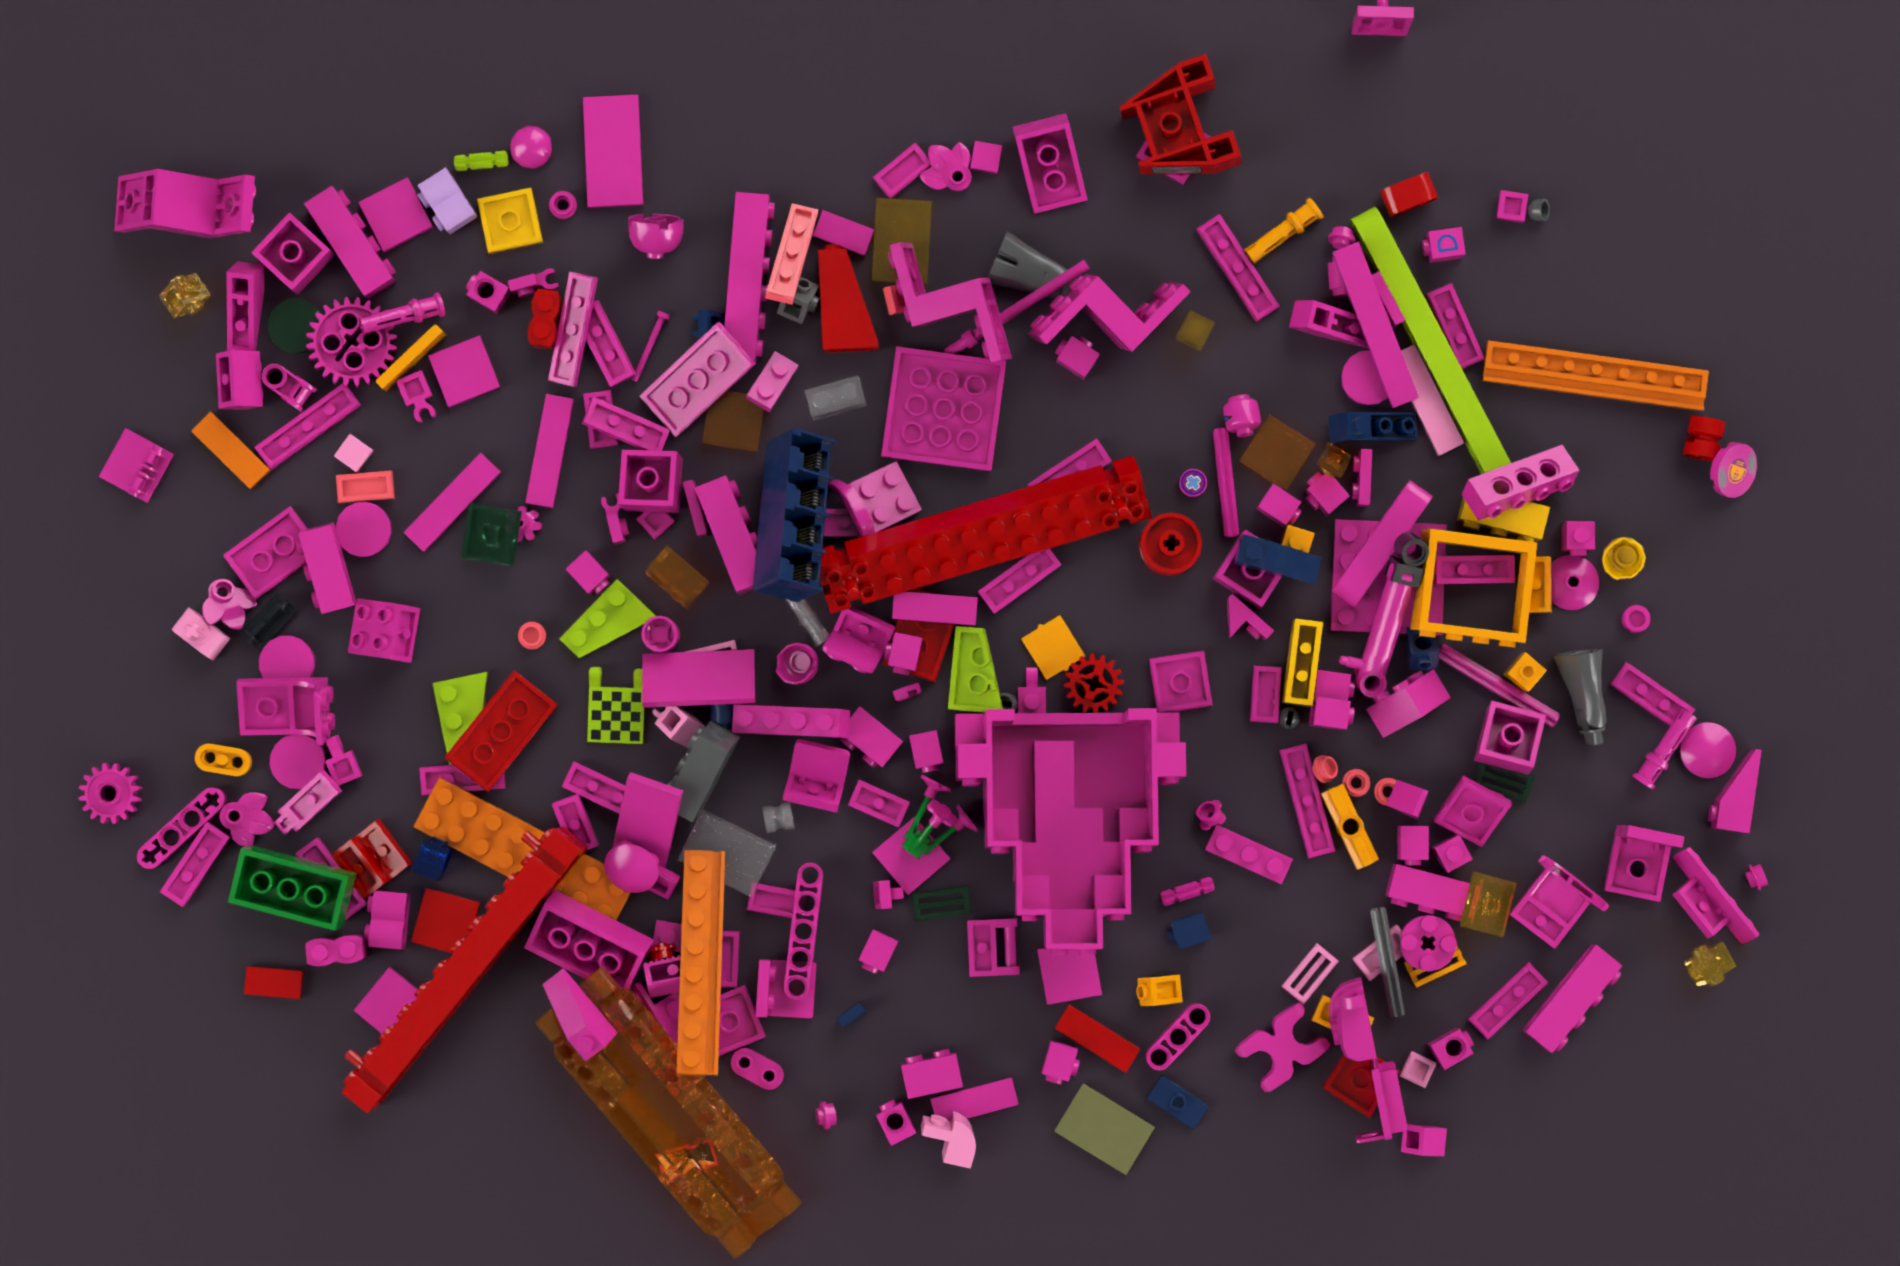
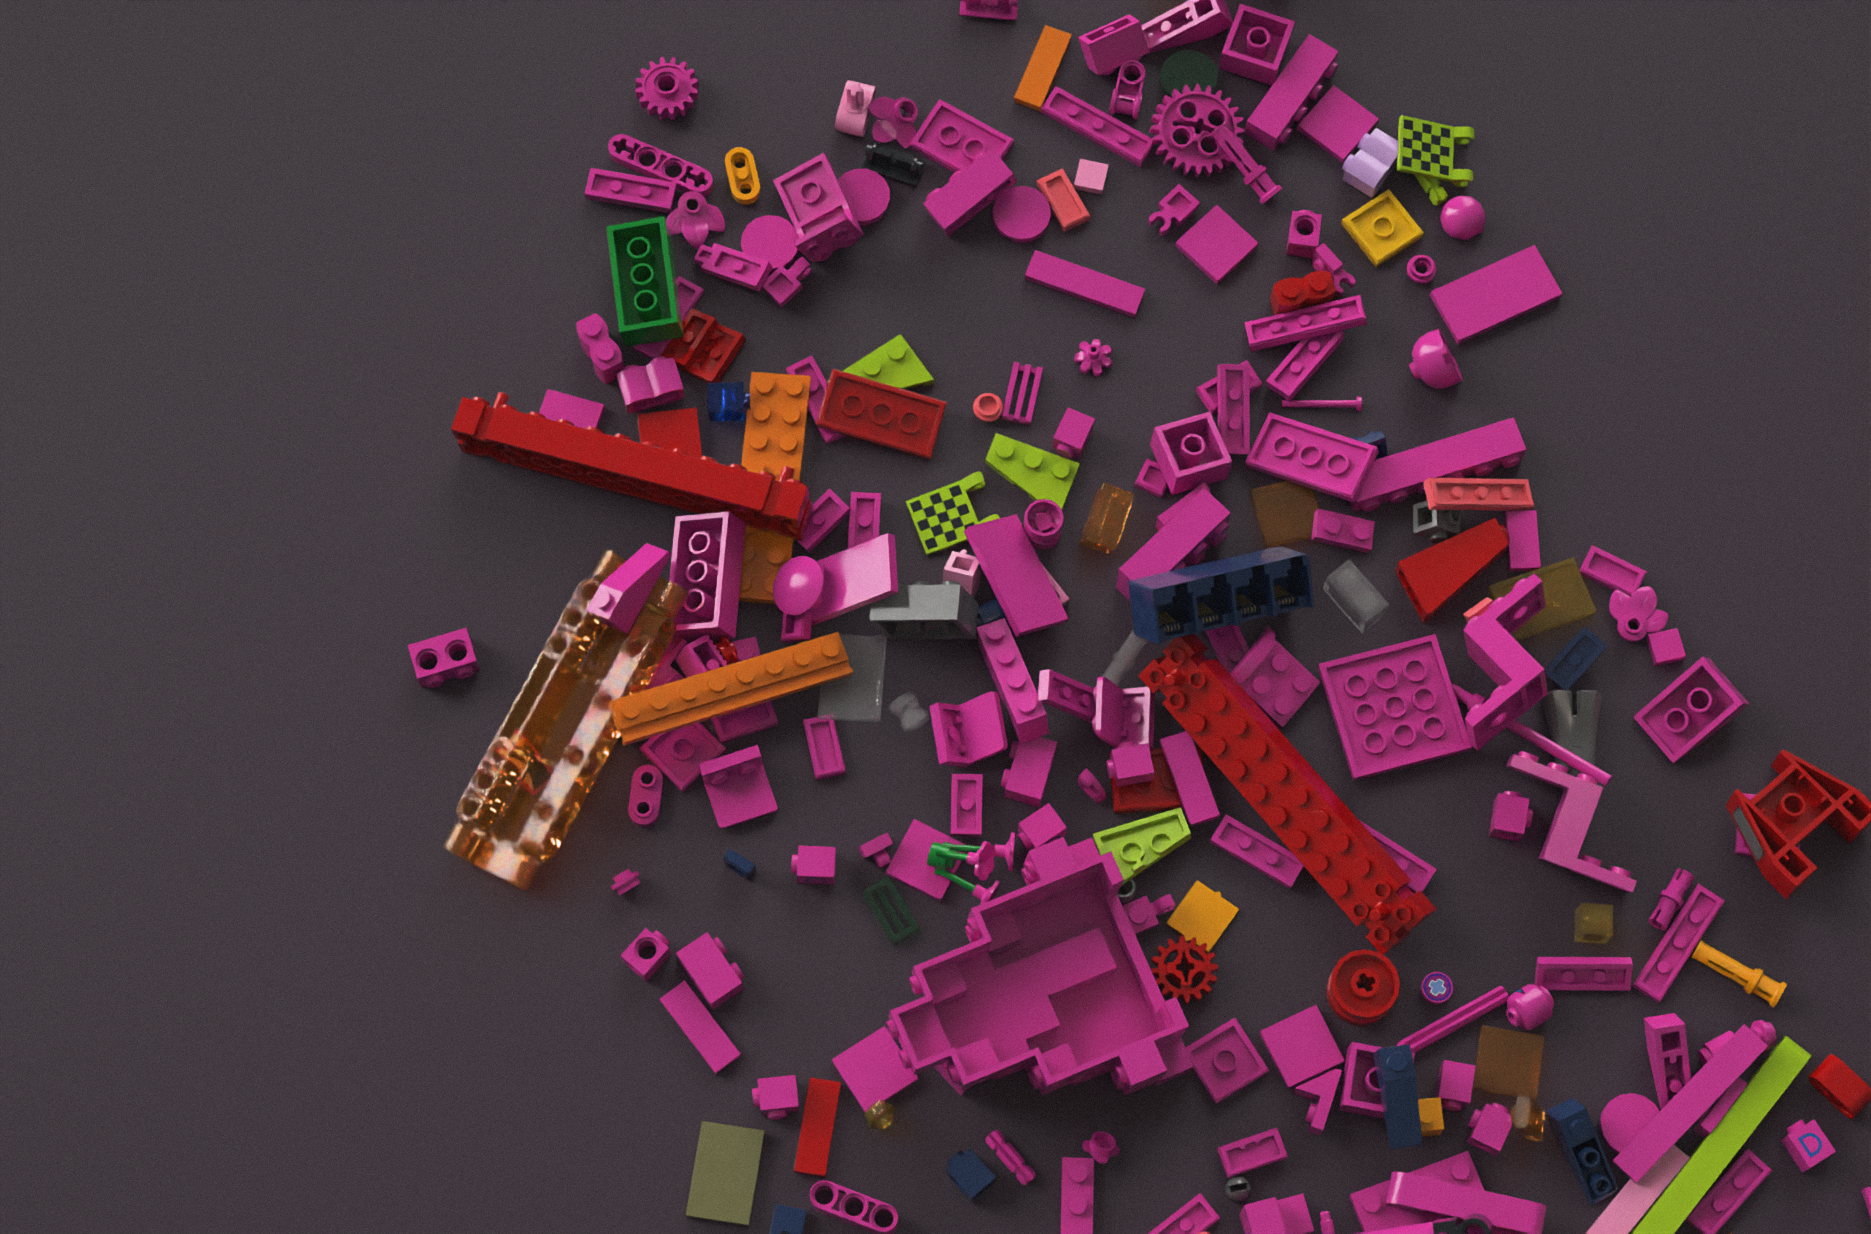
camera: 65 degrees right, 15 degrees down
(274, 982) = (545, 306): red tile -> none
(384, 630) = (932, 271): dark pink bracket -> none
(410, 357) = (1207, 189): light orange tile -> none
(456, 148) = (1428, 150): none -> lime flag
(491, 534) = (1070, 328): clear green tile -> none
(512, 587) = (1026, 370): none -> dark pink tile
(549, 451) = (1176, 352): dark pink tile -> none
(557, 1192) = (442, 649): none -> dark pink brick
(617, 526) = (1131, 441): dark pink plate -> none
(796, 943) = (816, 769): dark pink beam -> none
(797, 663) = (1074, 663): dark pink hair -> none
(825, 682) = (1066, 695): none -> dark pink plate
(958, 1137) = (659, 1021): bright pink brick -> none
(967, 239) = (1575, 659): none -> dark blue plate
(983, 947) = (863, 970): dark pink plate -> none
(1109, 983) = (880, 1114): none -> clear yellow plate
(1159, 990) = (895, 1170): light orange bracket -> none
(1195, 614) = (1301, 1046): none -> dark pink tile
(1200, 257) = (1671, 899): none -> dark pink pin
(1232, 358) = (1584, 973): none -> dark pink plate
(1302, 662) = (1304, 1174): yellow brick -> none
(1362, 465) = (1537, 1155): dark pink plate -> none

